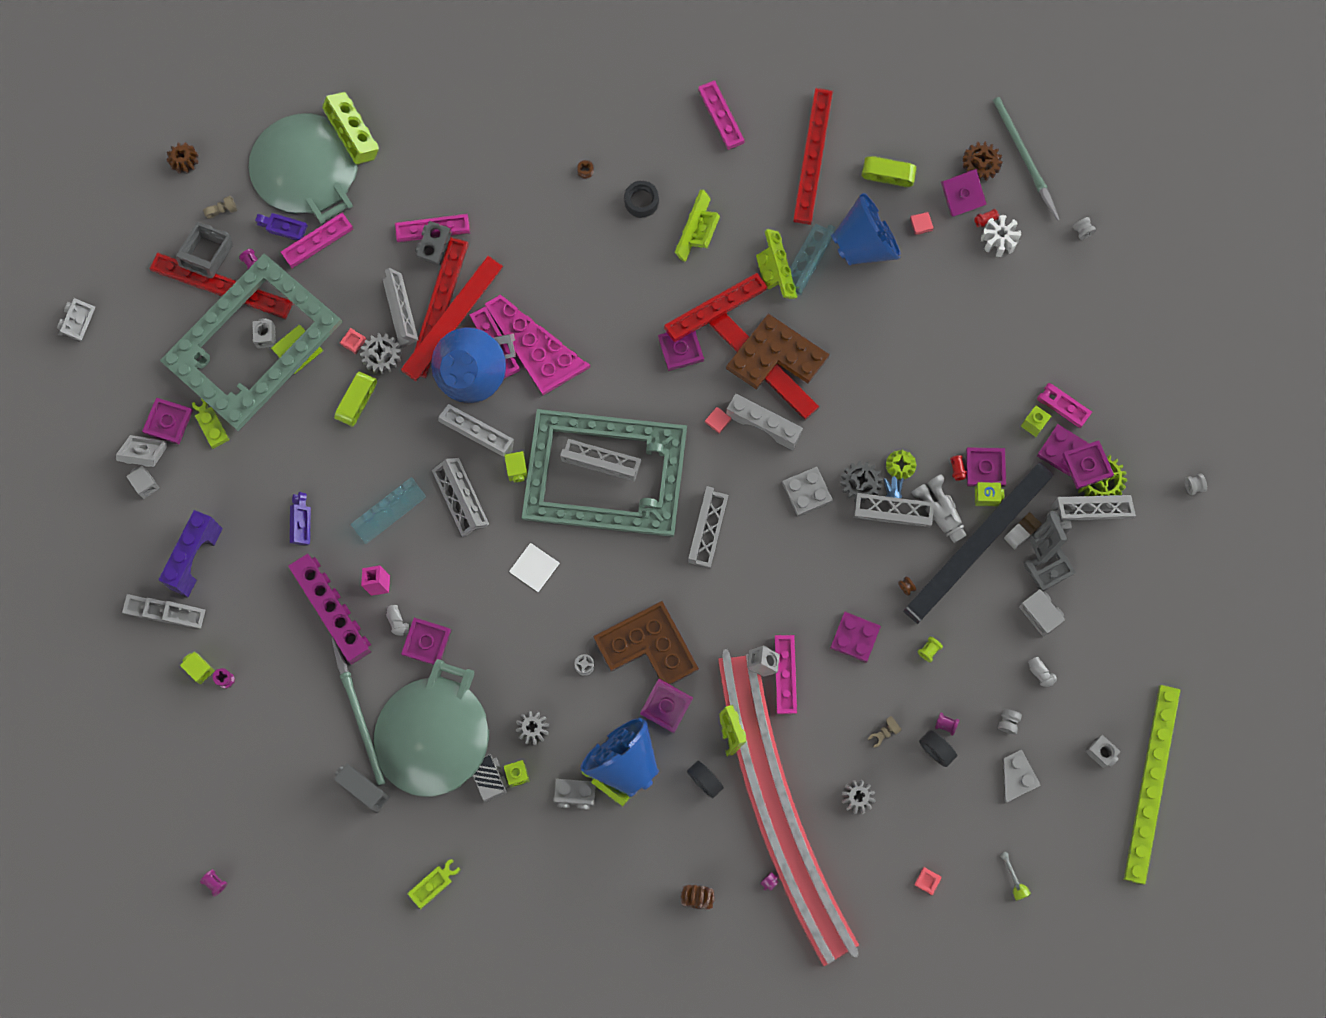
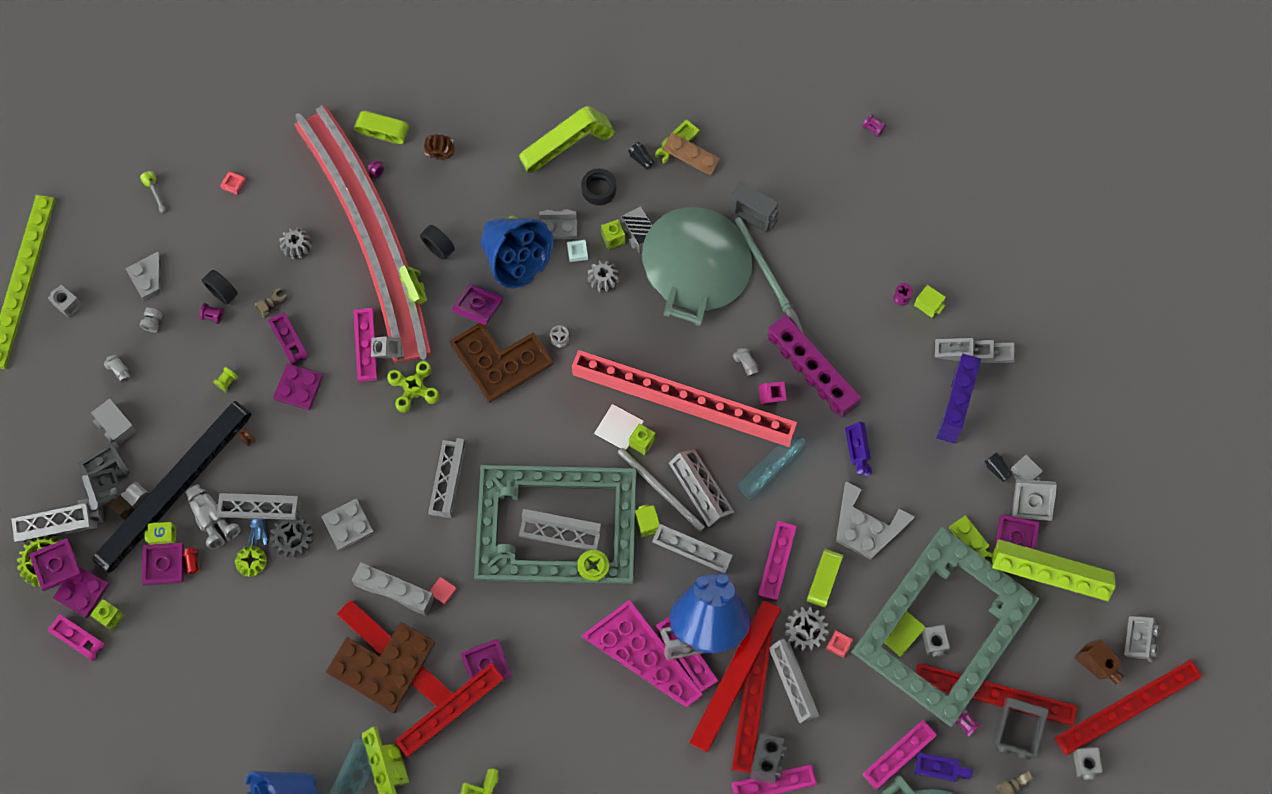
camera: 175 degrees right, 5 degrees down
(103, 265) = (1128, 707): none -> red tile
(115, 296) = (1100, 661): none -> reddish brown torso
(140, 381) = (1053, 570): none -> lime brick
(153, 226) = (1092, 755): none -> light grey brick
(168, 490) = (998, 467): none -> black cone
(310, 440) = (863, 532): none -> light grey wing
(397, 419) = (777, 561): none -> dark pink plate
(421, 864) = (690, 153): none -> medium nougat plate
(426, 641) = (714, 344): magenta plate -> none
(465, 580) = (684, 398): none -> coral brick
(476, 870) = (640, 155): none -> black cone
(499, 498) = (661, 489): none -> light grey piece
(511, 834) = (598, 174): none -> black tyre
(512, 546) = (642, 439): none -> lime brick
(555, 890) = (565, 135): none -> lime beam
(557, 760) = (577, 250): none -> light aqua plate
(574, 416) = (593, 556): none -> lime gear
(744, 628) = (415, 392): none -> lime gear
(761, 932) = (381, 127): none -> lime beam
(866, 689) = (287, 337): none -> magenta plate

